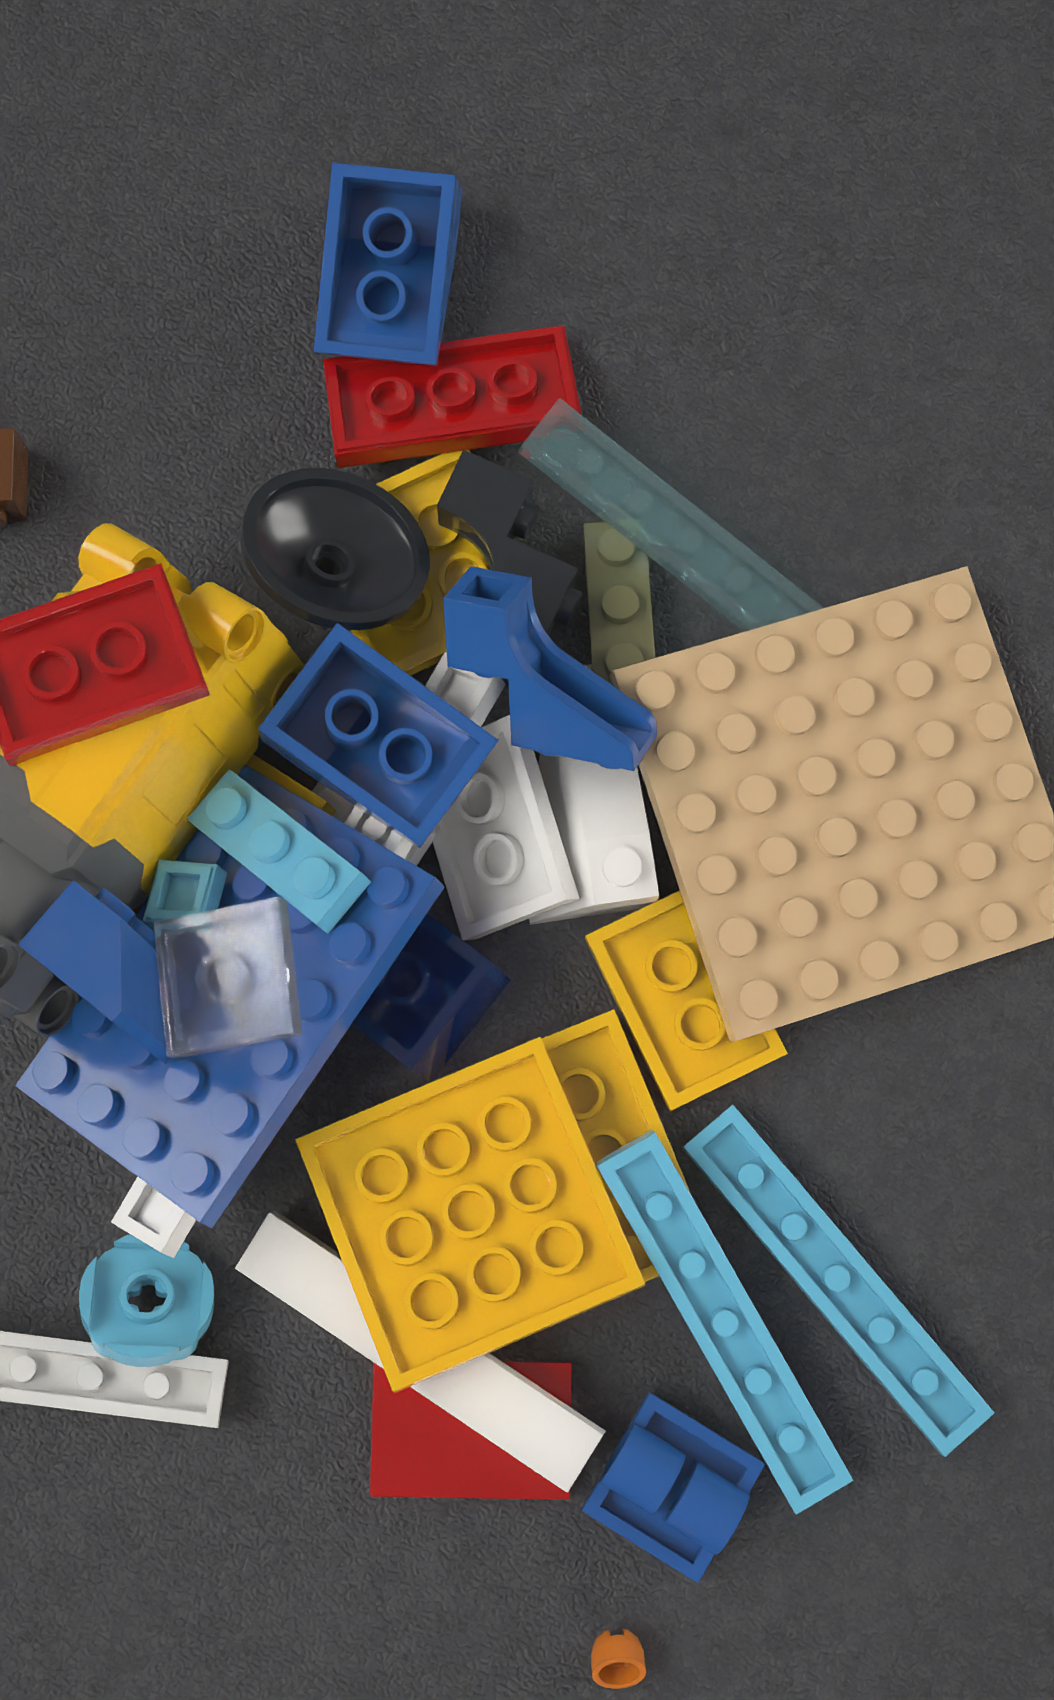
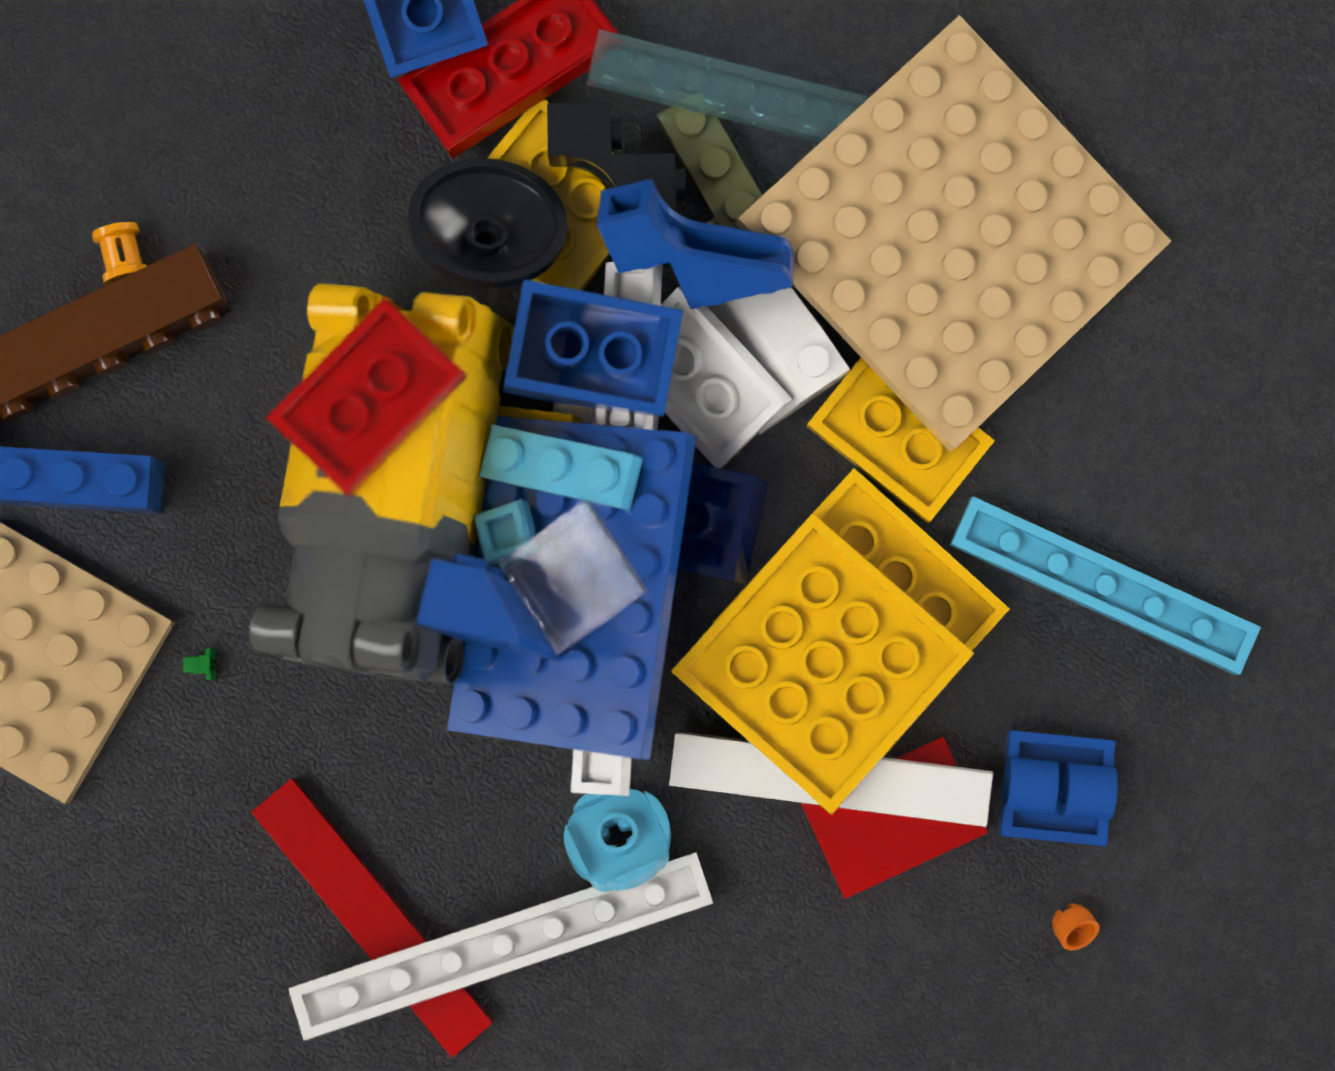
camera: 25 degrees left, 5 degrees up
(724, 1321) = (1038, 653): medium azure plate -> none

